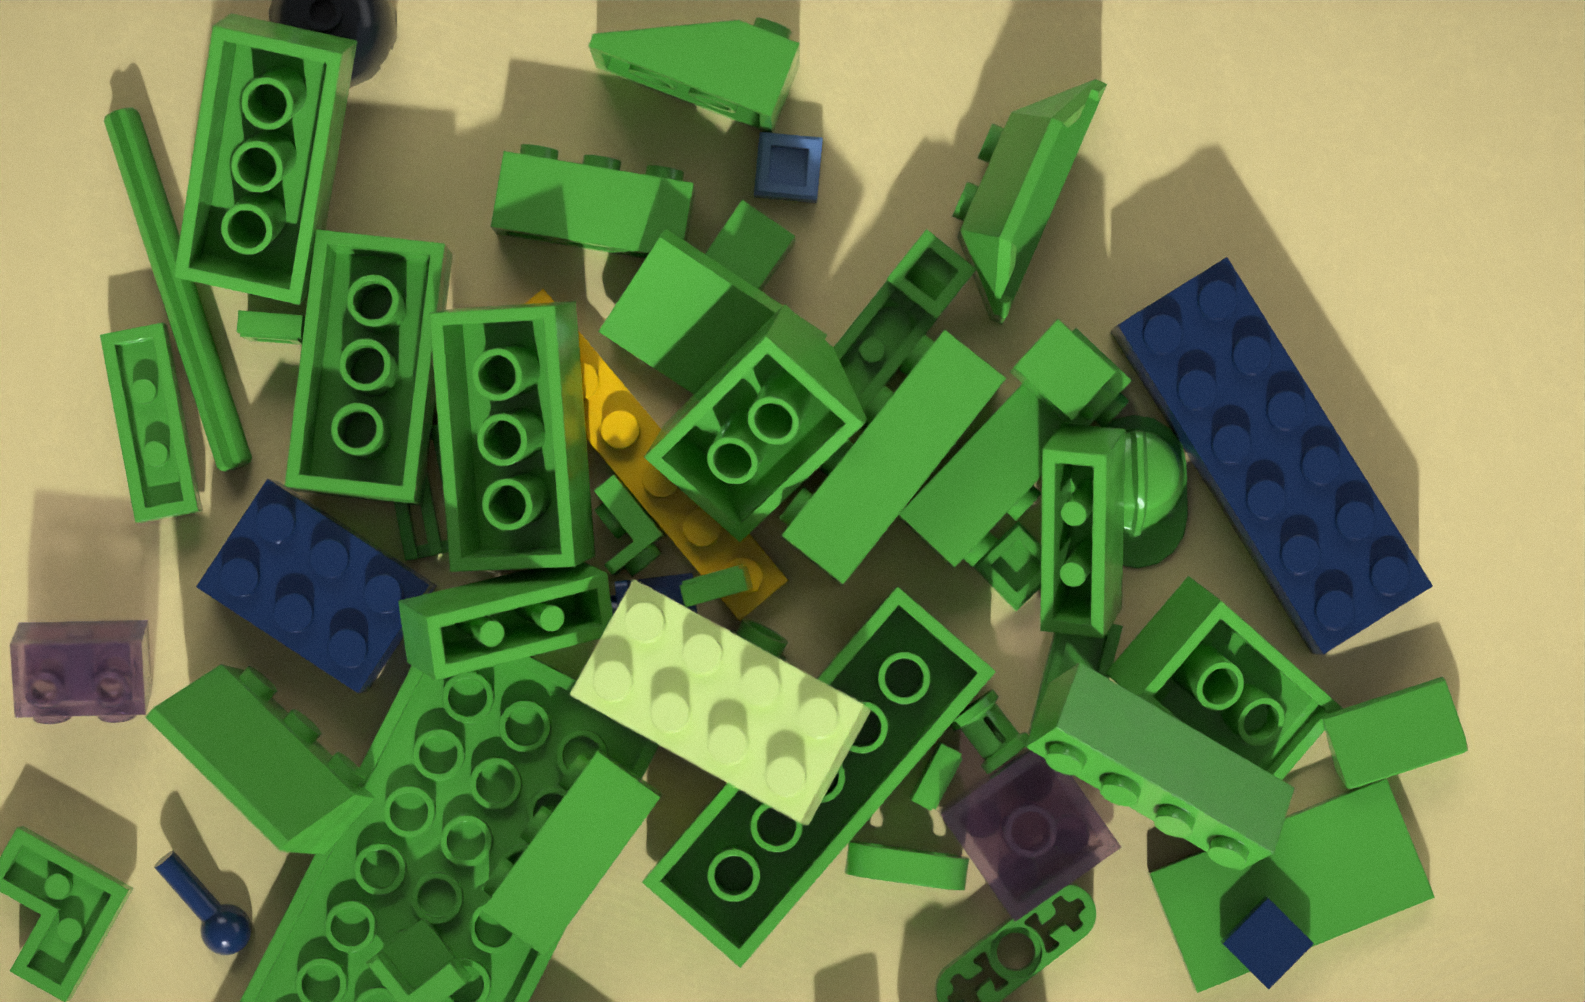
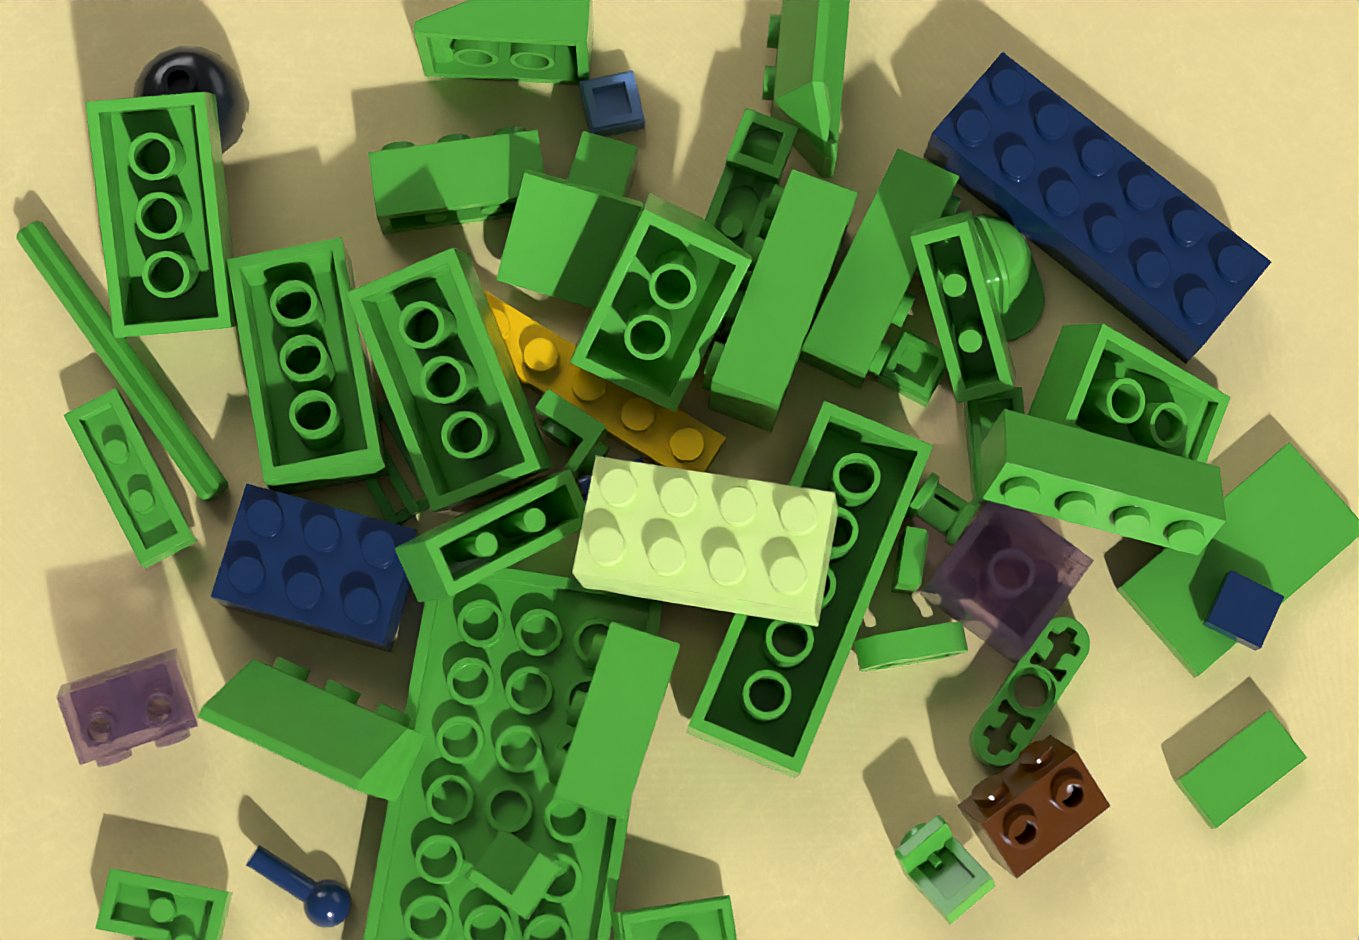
camera: 25 degrees left, 10 degrees down
(271, 327) = (213, 362): bright green tile -> none
(715, 585) = (670, 448): bright green tile -> none
(1065, 374) = (903, 180): bright green brick -> none
(1394, 733) = (1281, 402): bright green slope -> none

